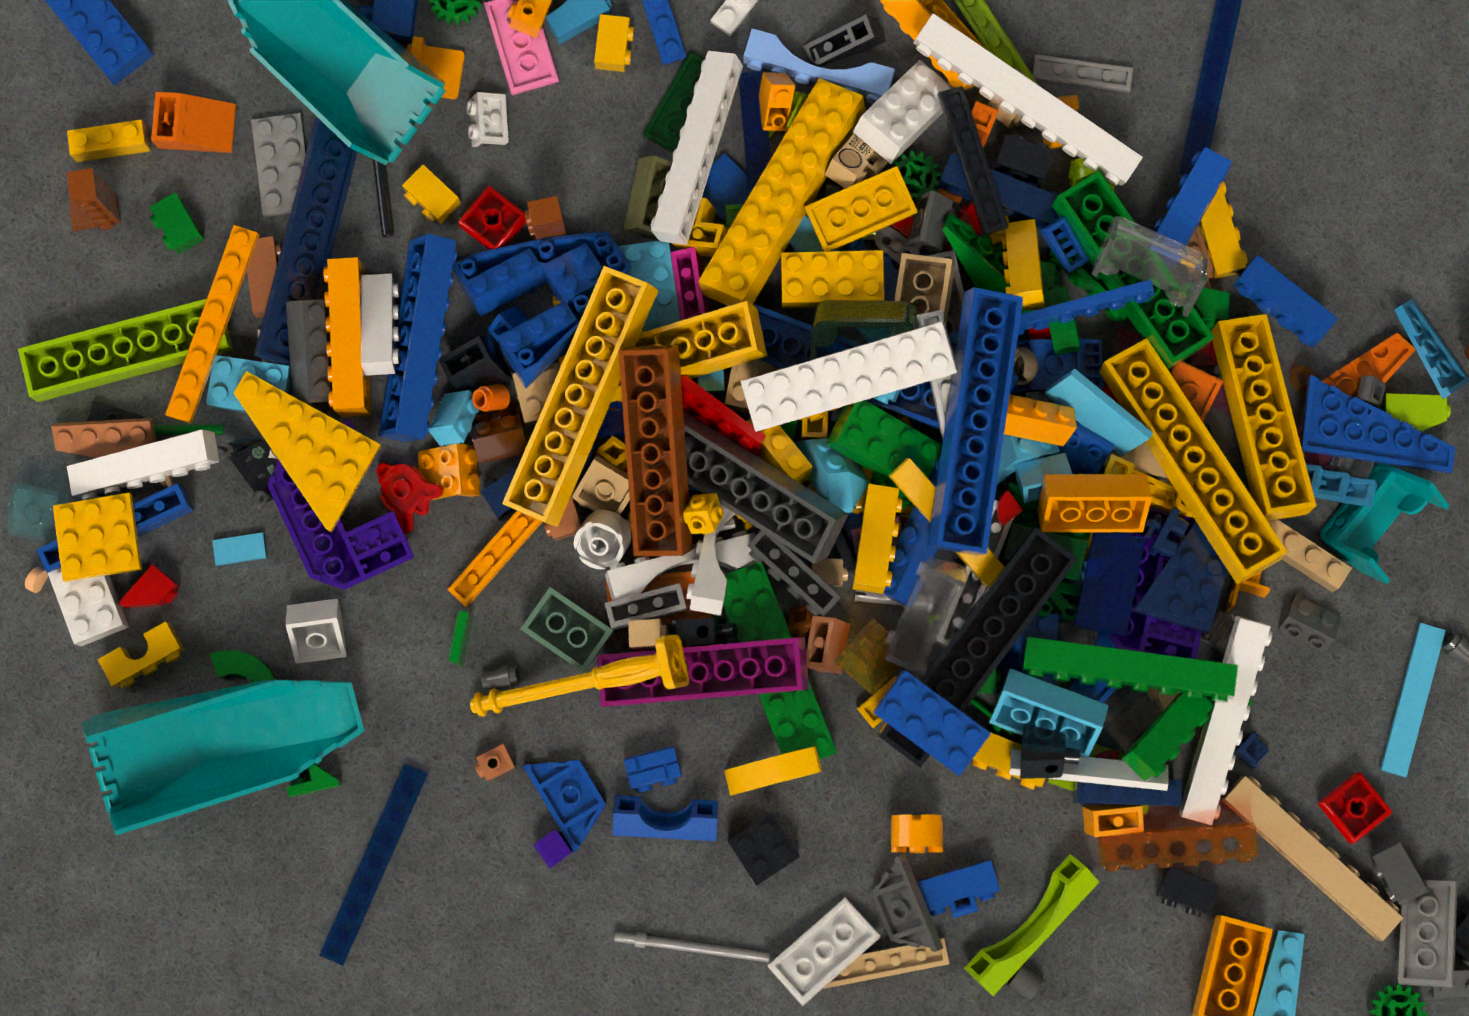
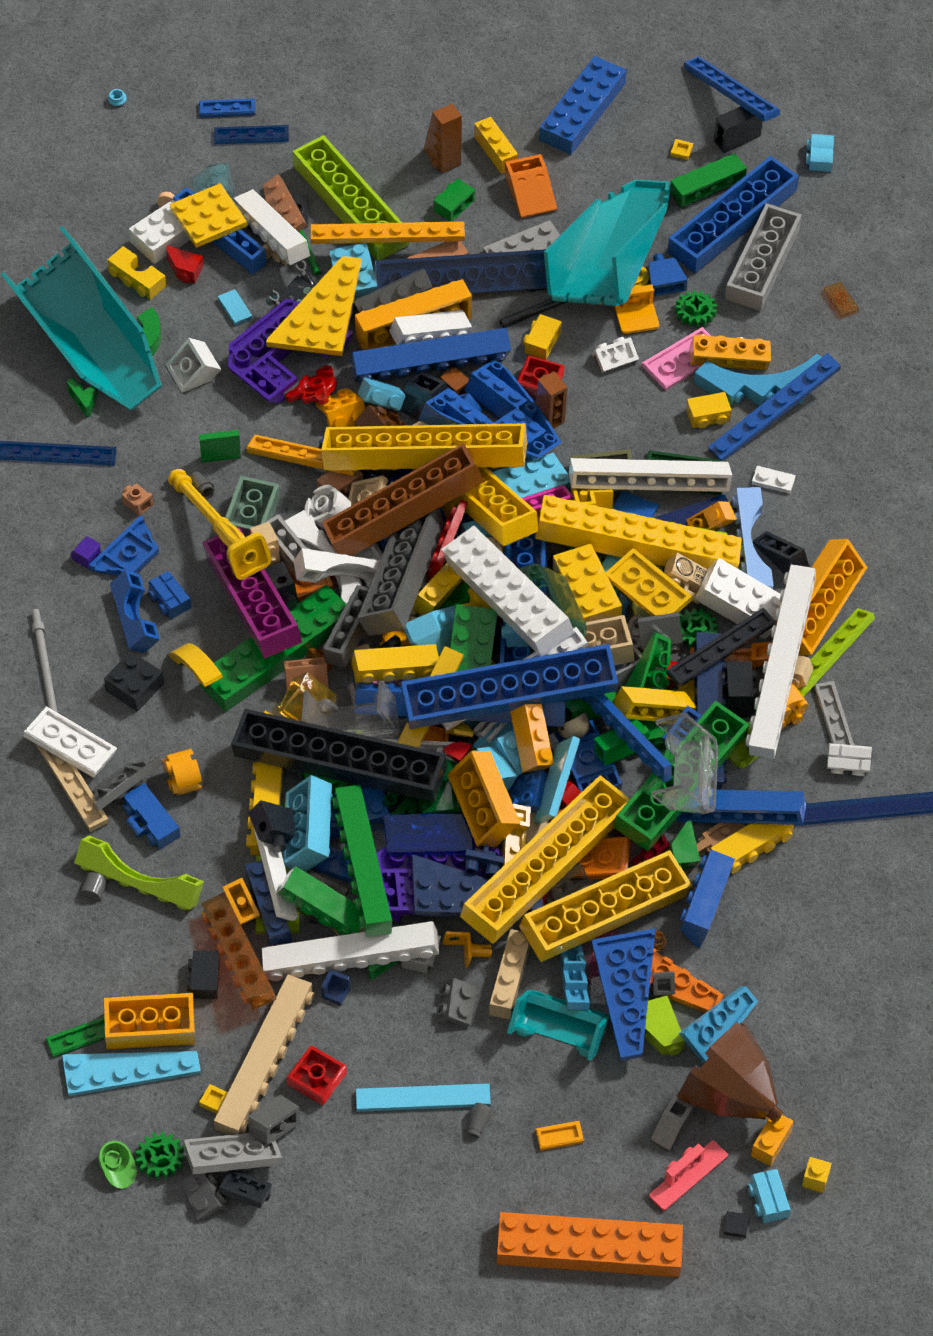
camera: 70 degrees right, 25 degrees down
(462, 324) = (455, 380): none -> dark orange brick
(491, 397) = (405, 410): orange brick -> none
(703, 513) = (369, 547): yellow brick -> none
(931, 722) = (266, 731): blue brick -> none
(1147, 79) = (849, 758): none -> white brick
(1345, 930) = (213, 1098): none -> yellow plate

